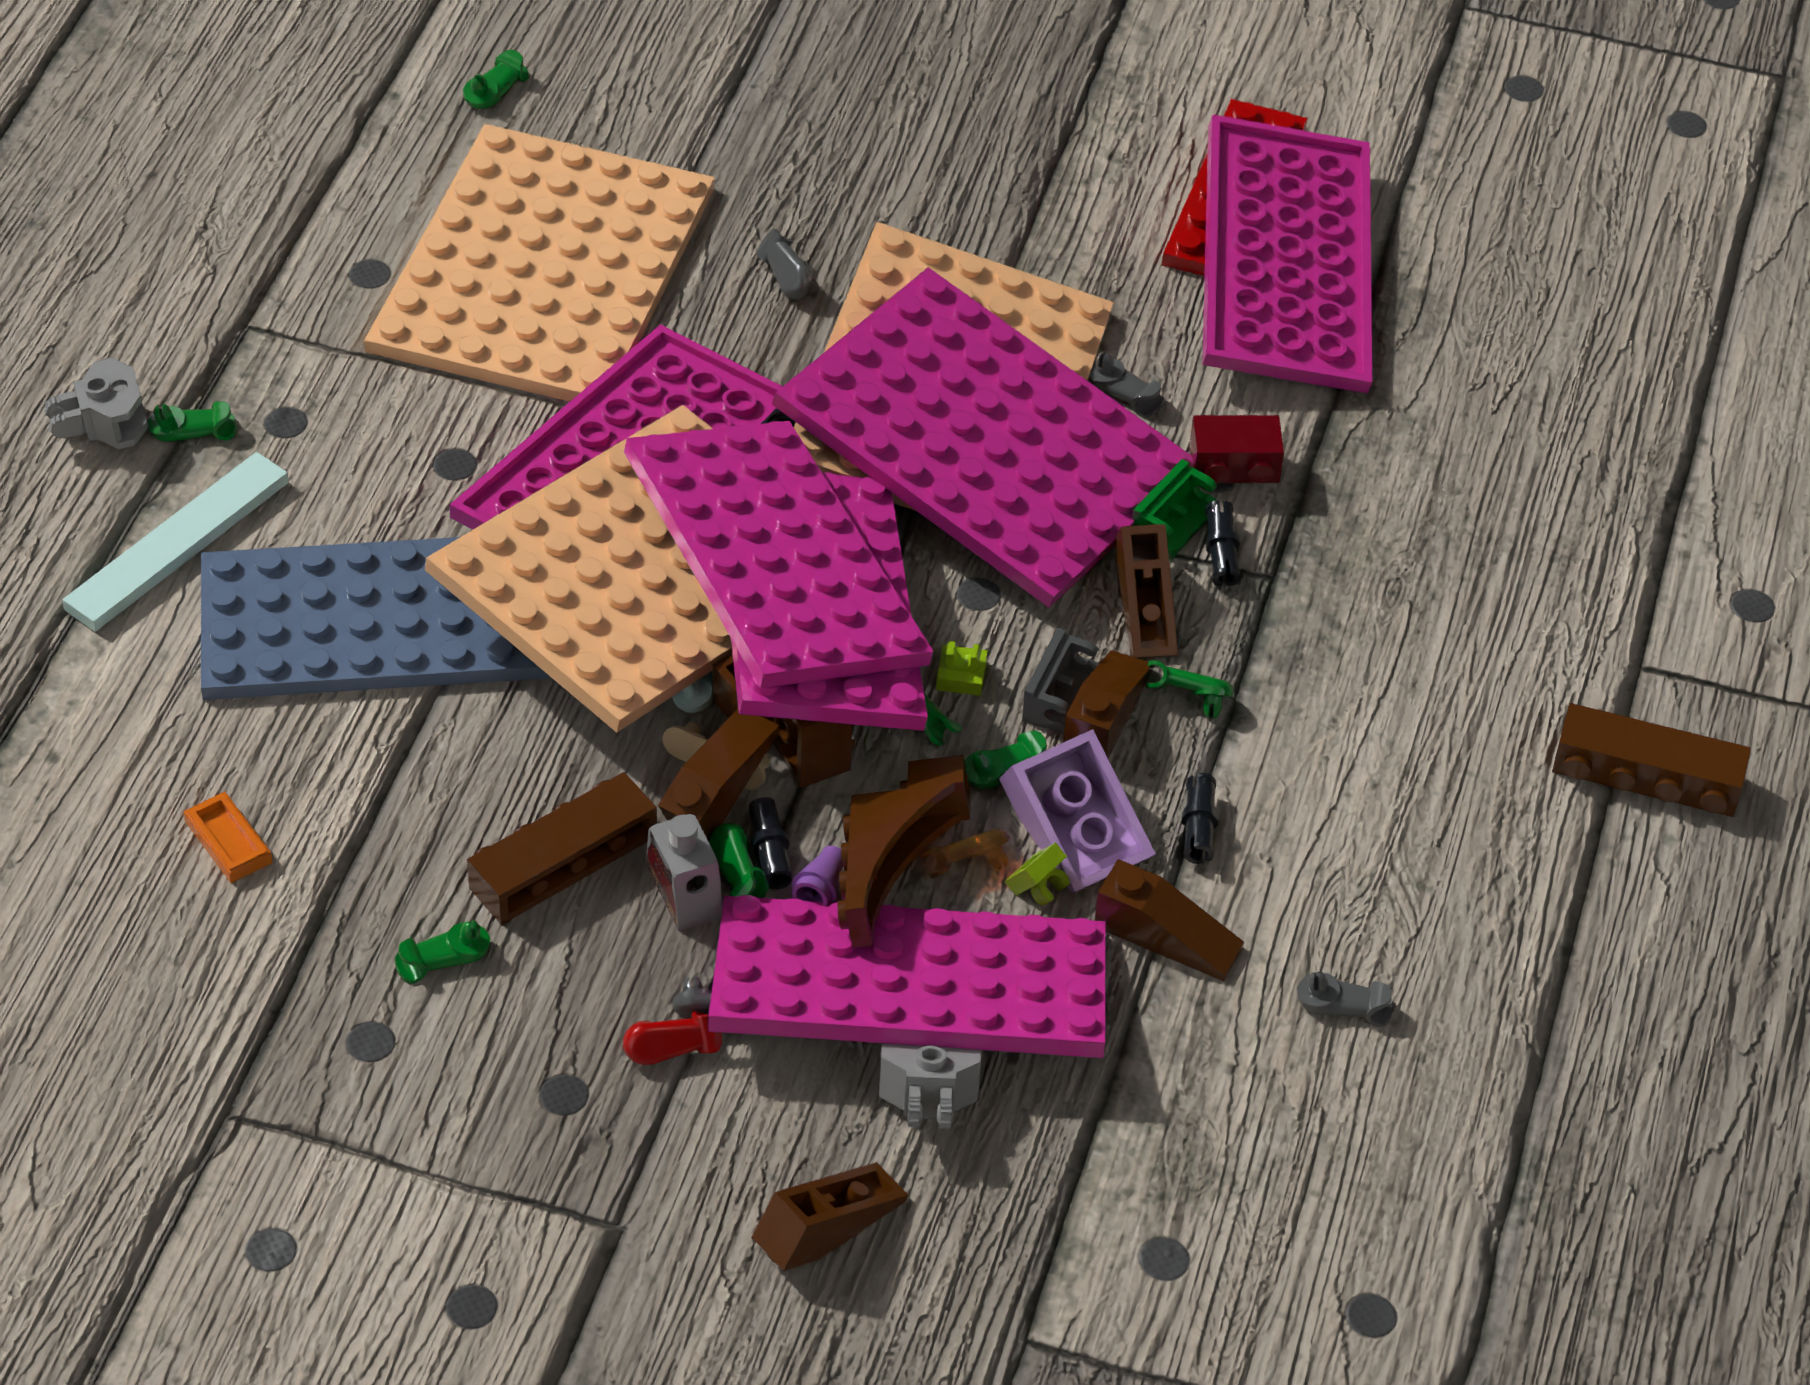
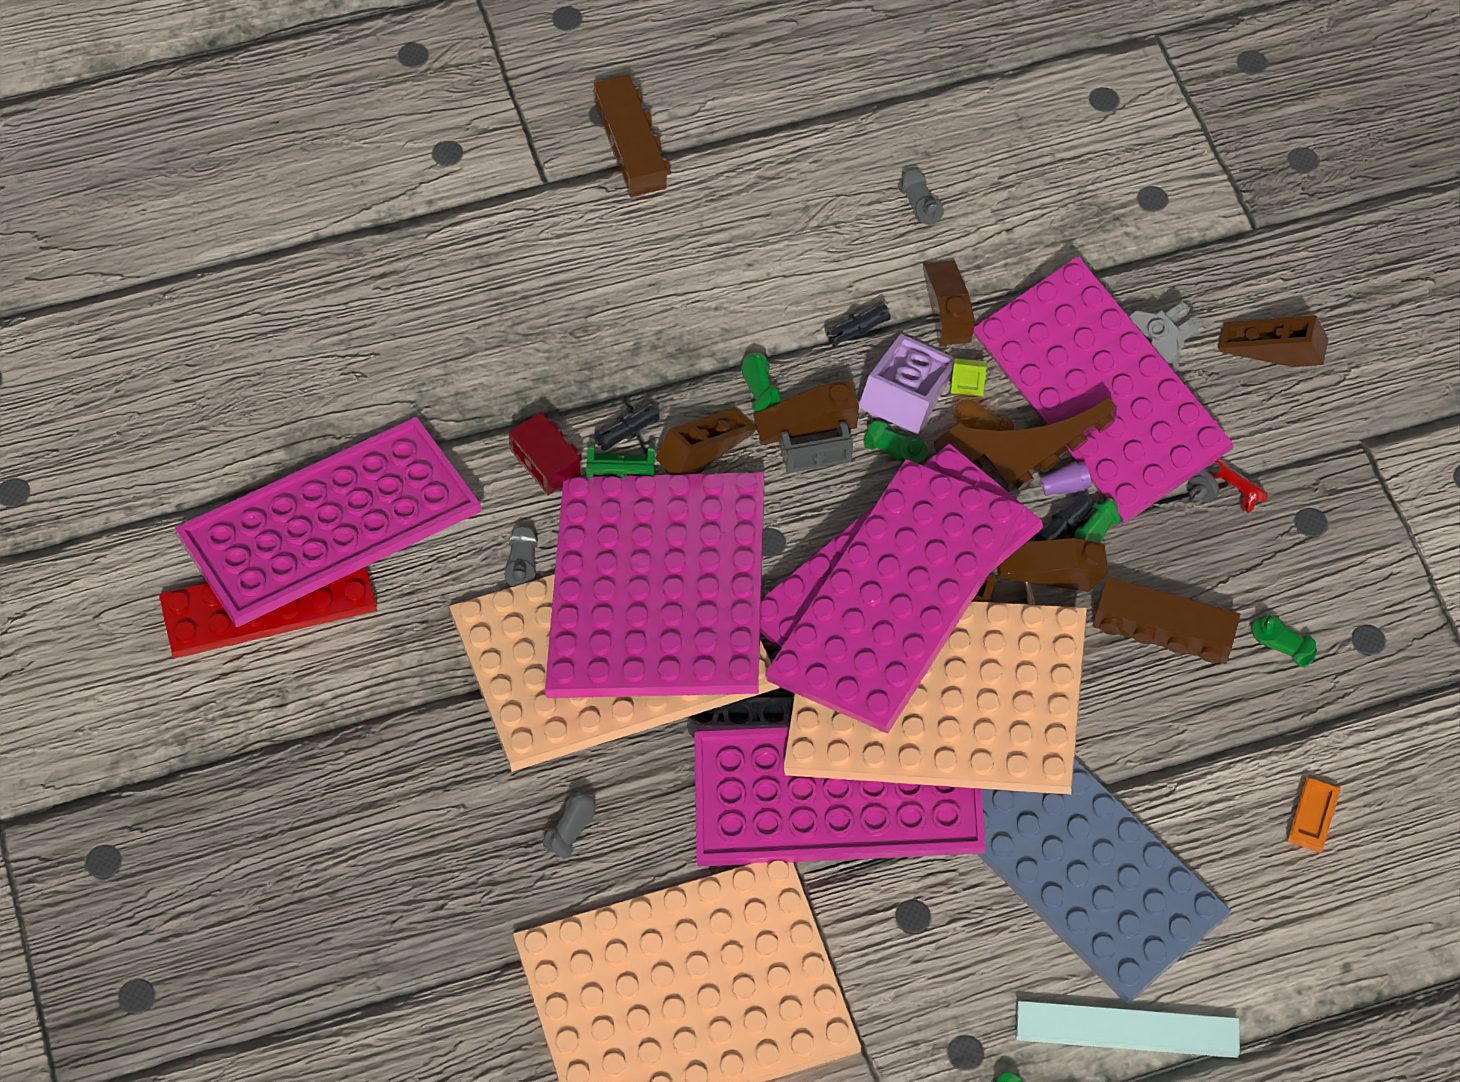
camera: 125 degrees left, 10 degrees up
(681, 854) = (1136, 535): light grey torso -> none
(962, 669) = (843, 508): lime tile -> none

